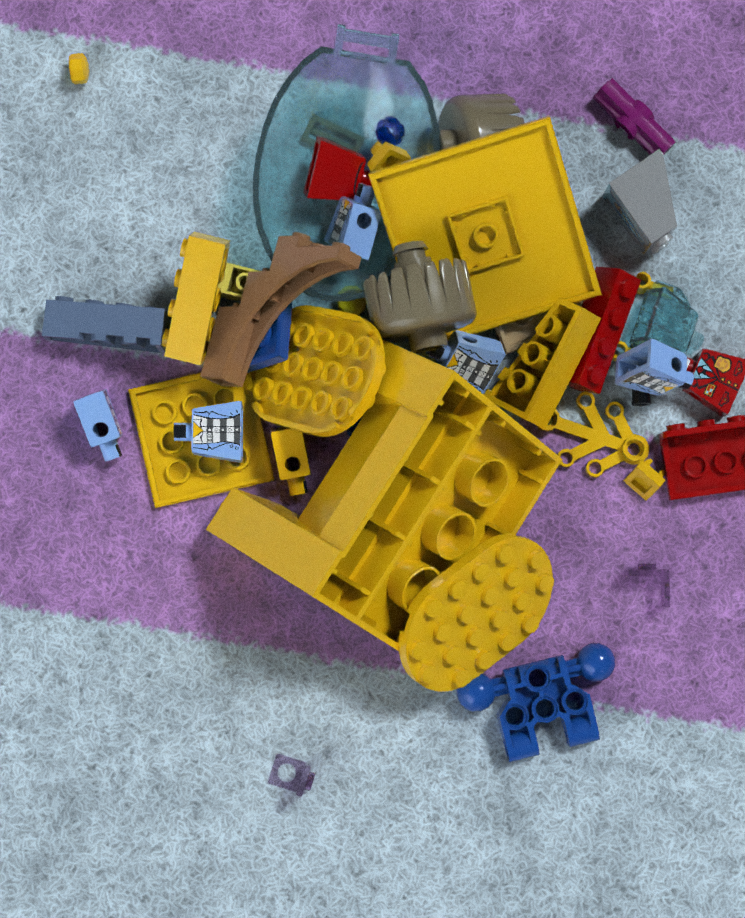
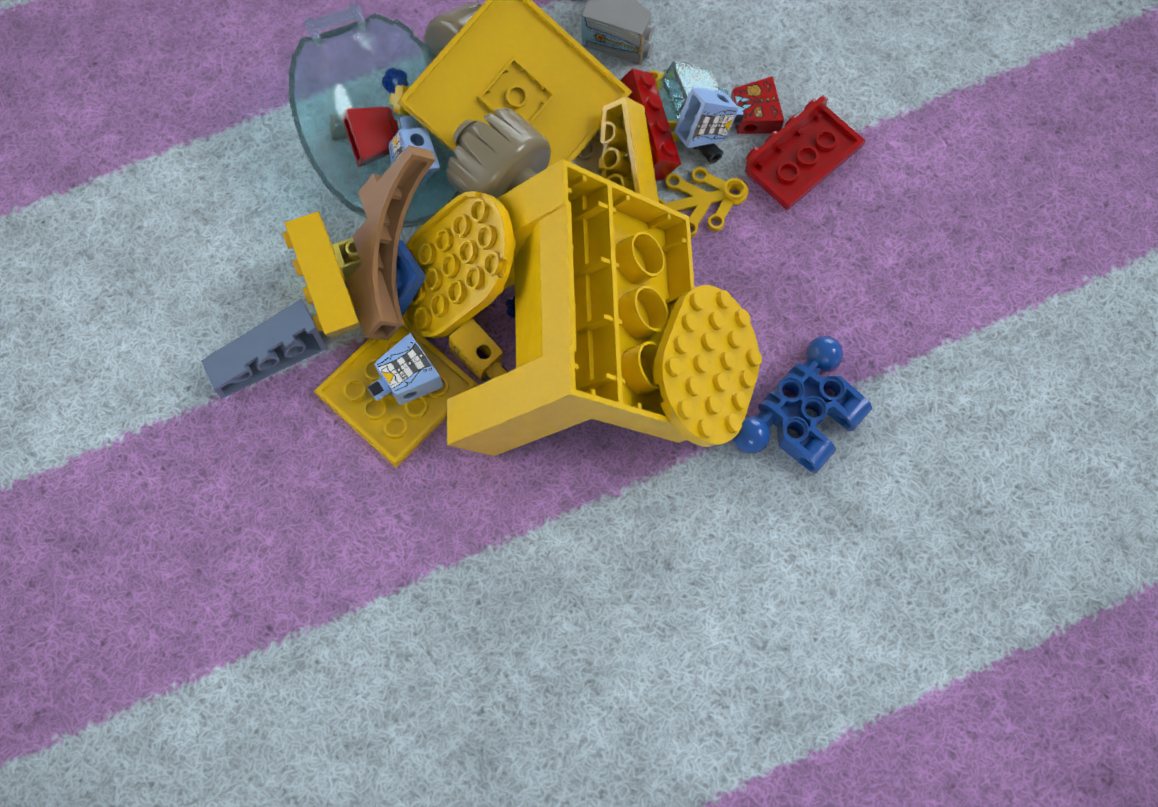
camera: 30 degrees left, 15 degrees down
(78, 68) = (125, 189): yellow tile -> none
(97, 409) = (289, 416): light blue torso -> none
(302, 780) = (663, 595): clear purple bracket -> none
(645, 479) = (759, 205): yellow tile -> none
(649, 570) = (824, 259): clear purple bracket -> none

